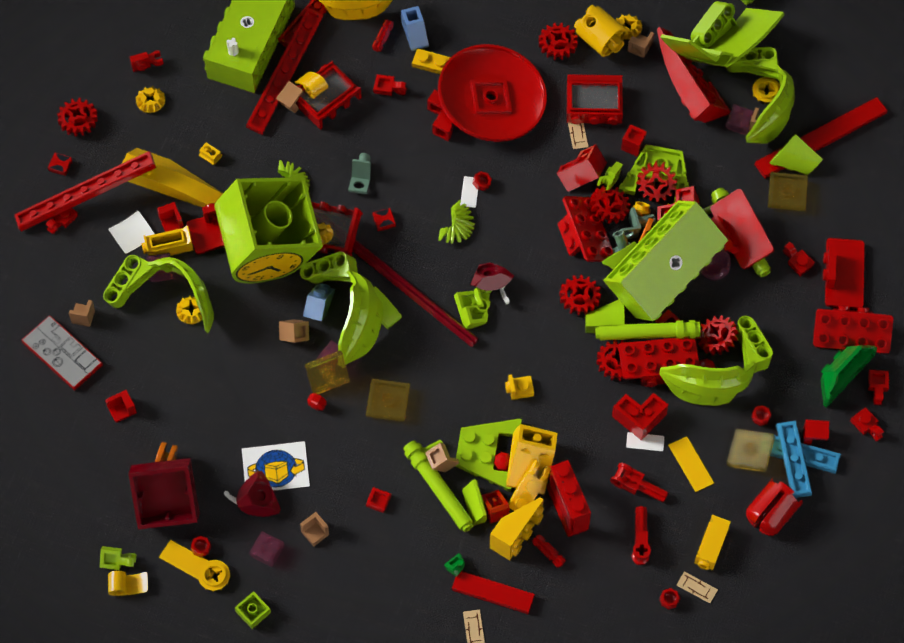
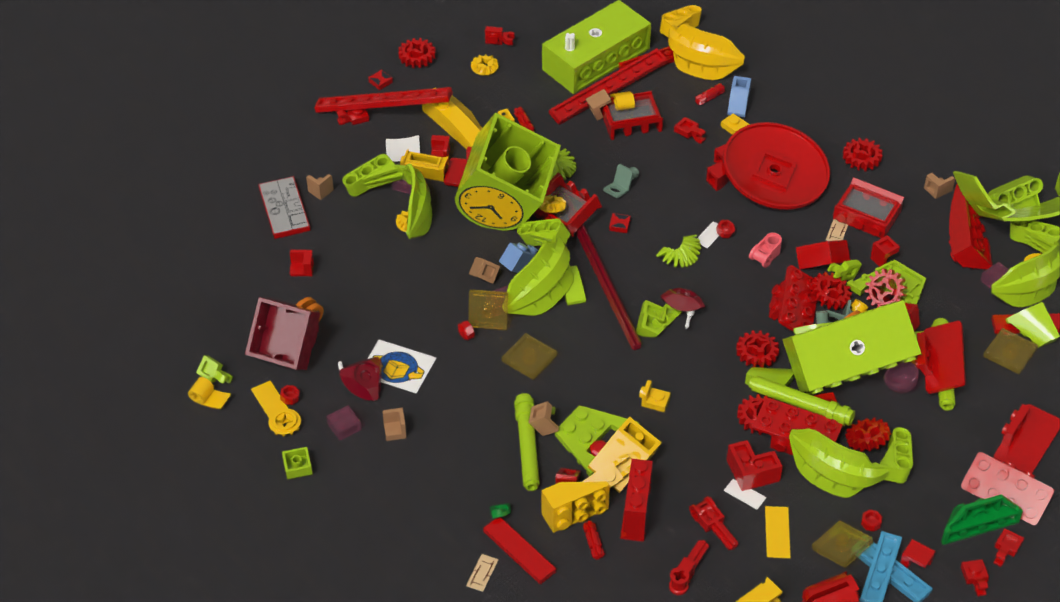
camera: 30 degrees right, 15 degrees down
(227, 146) = (523, 118): none -> red axle
(378, 500) = (467, 429): red tile -> none
(474, 503) = (551, 467): lime slope -> none
(531, 189) = (766, 249): none -> coral piece
(601, 31) = (905, 158): yellow cylinder -> none
(636, 26) = (928, 167): yellow gear -> none
(799, 261) = (988, 412): red plate -> none

